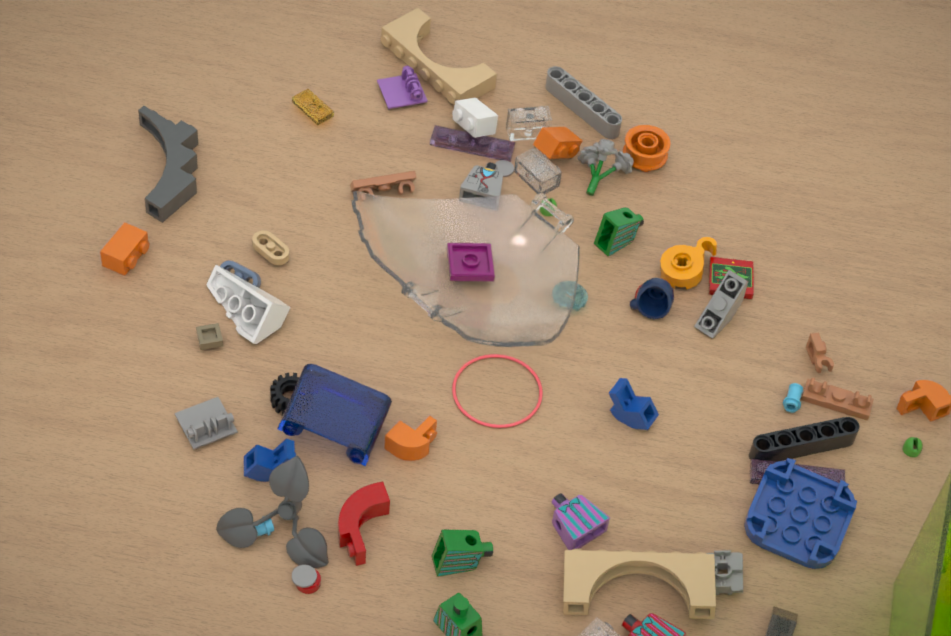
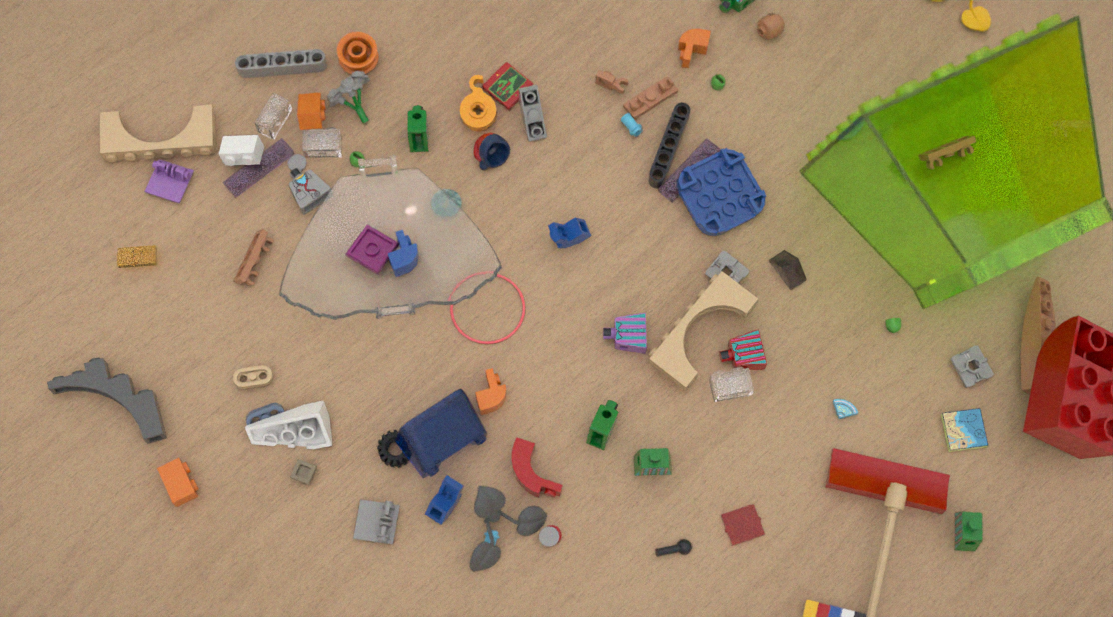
camera: 50 degrees left, 20 degrees up
(485, 290) = (406, 257): none -> blue brick

